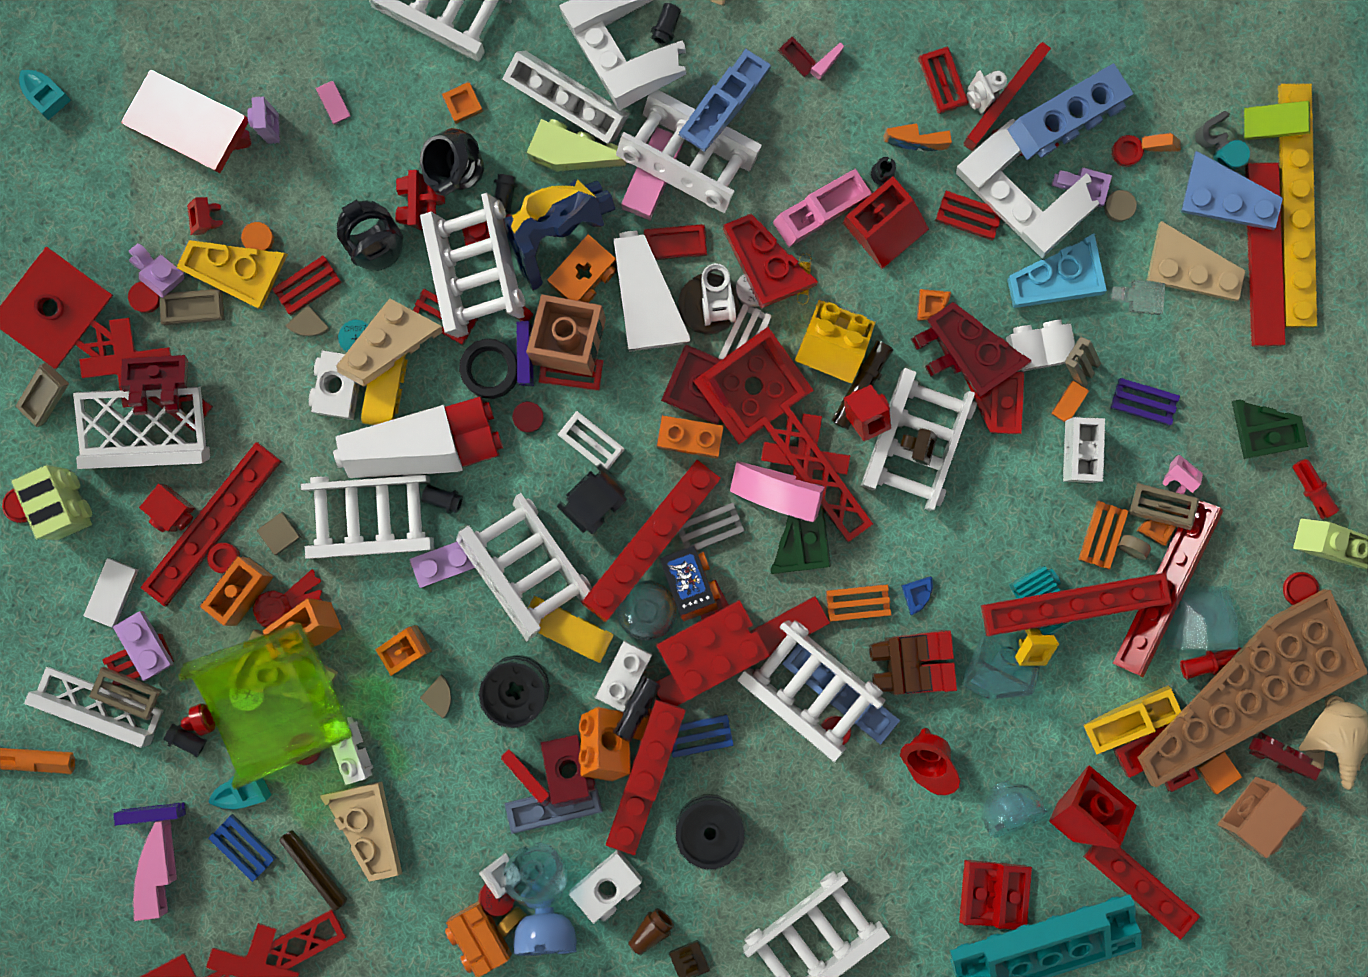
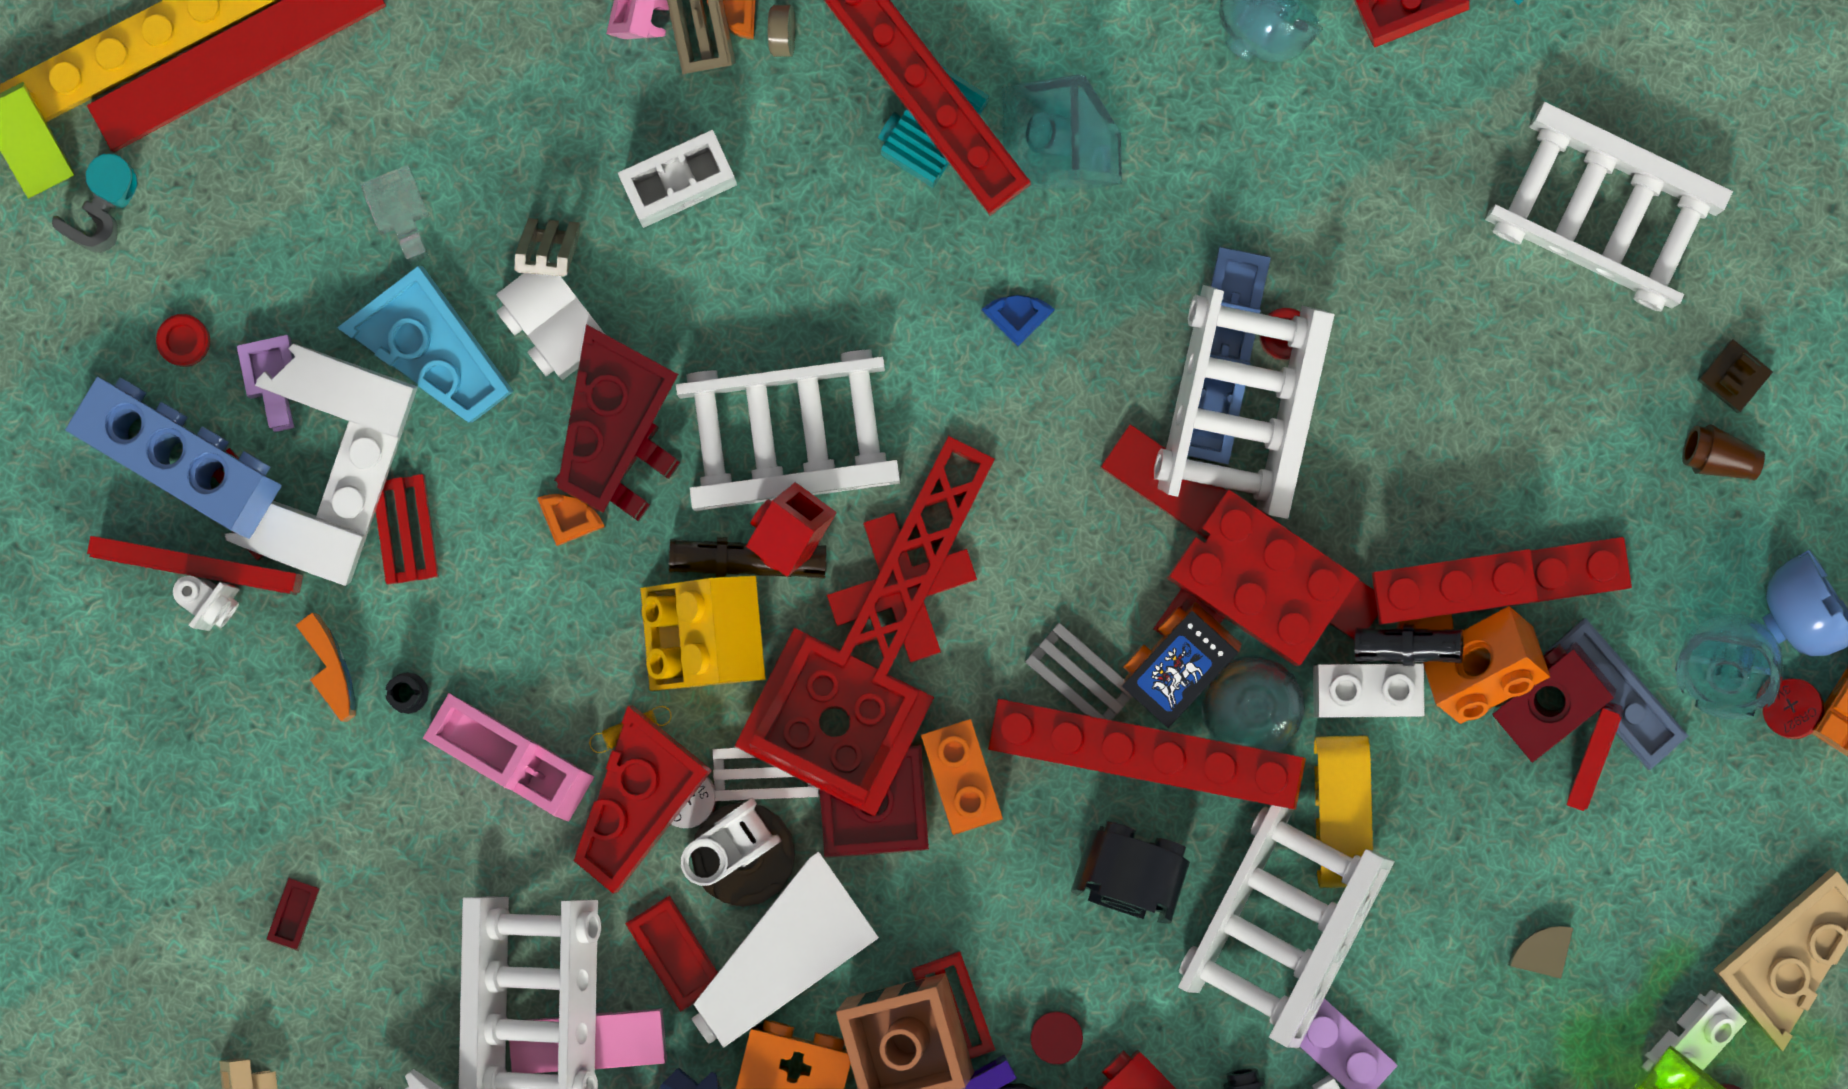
camera: 115 degrees left, 0 degrees up
(403, 649) = (1502, 1040): orange slope -> none
(494, 876) = (1763, 728): white tile -> none
(508, 708) = (1506, 838): black wheel -> none
(510, 921) = (1816, 669): pearl gold tile -> none
(570, 426) = (1035, 966): white tile -> none
(593, 901) = (1660, 557): white brick -> none
(703, 735) = (1369, 496): blue tile -> none
(709, 851) = (1555, 425): black wheel -> none
(724, 100) = (423, 989): medium blue slope -> none
(777, 491) = (975, 603): bright pink slope -> none
(802, 545) = (1030, 526): dark green wing -> none
(826, 62) = (286, 867): bright pink piece -> none
(885, 600) = (1053, 360): orange tile -> none
(886, 222) = (484, 647): red slope -> none
(904, 664) = (1126, 286): reddish brown hips -> none
(921, 446) = (797, 422): dark brown tile -> none
(930, 763) = (1259, 171): red piece -> none
(951, 104) = (247, 642): red tile -> none
(1003, 405) = (670, 331): red wing -> none
(1036, 648) = (1011, 101): yellow tile -> none
(1070, 401) = (611, 235): orange piece -> none
(1111, 510) = (781, 65): orange tile -> none
(1120, 206) = (273, 309): dark tan tile -> none
(1161, 143) = (146, 295): orange tile -> none
(1170, 409) = (545, 80): dark purple tile -> none
(1193, 267) = (311, 155): tan wing -> none
(1228, 196) = (178, 155): medium blue wing -> none

